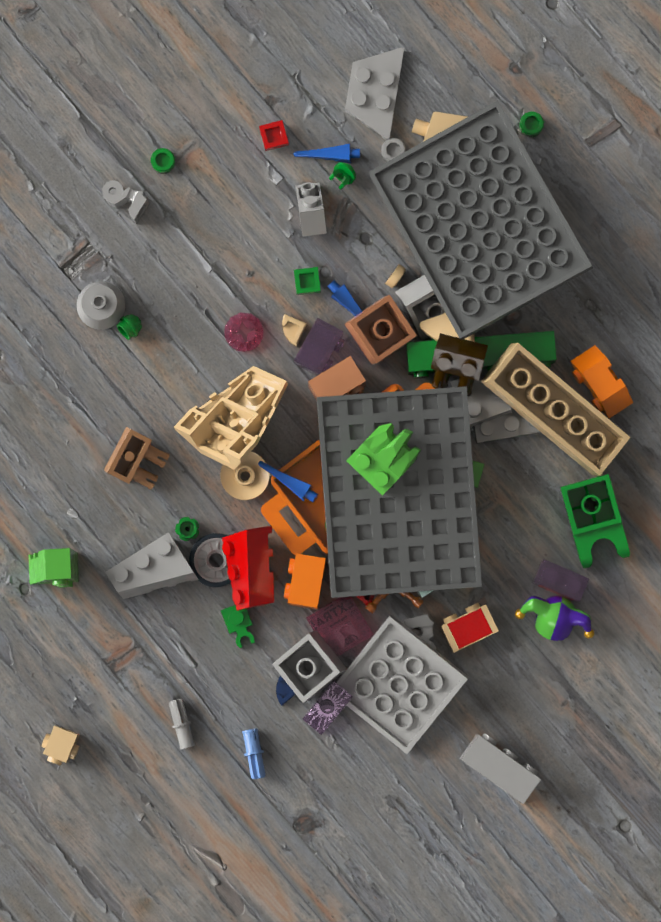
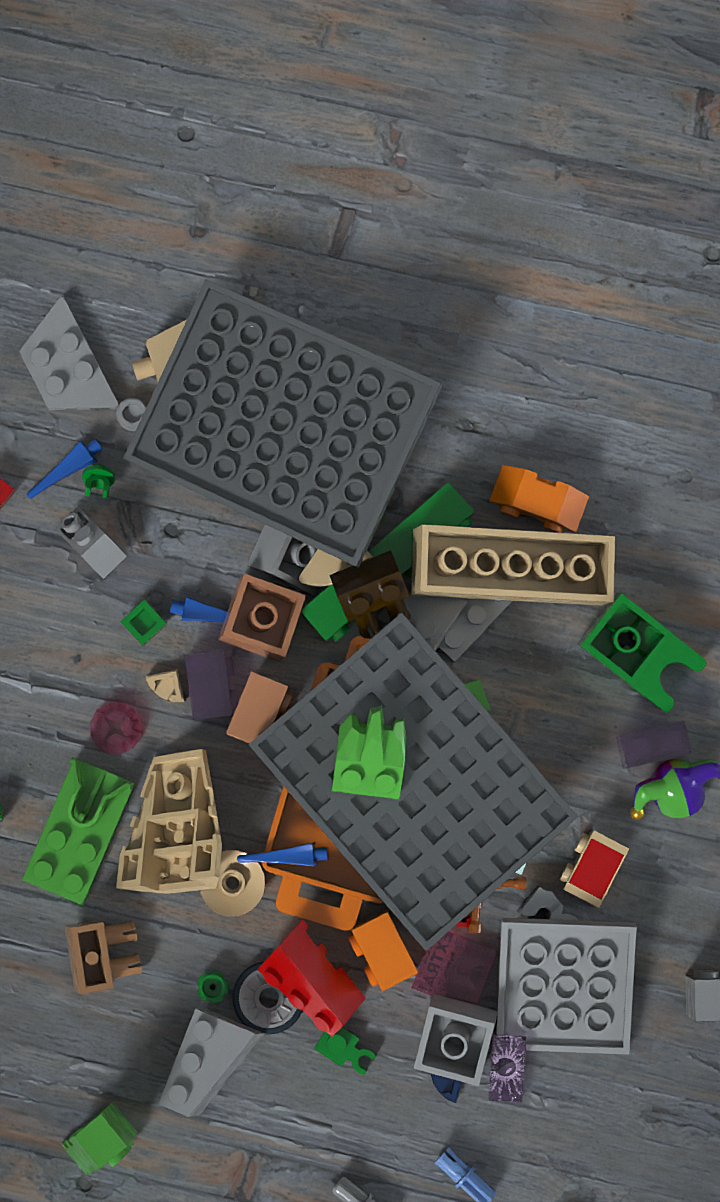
camera: 35 degrees left, 0 degrees up
(176, 377) = (78, 831): none -> bright green plate
(395, 276) = (235, 547): tan tile -> none
(531, 124) = (259, 278): green tile -> none

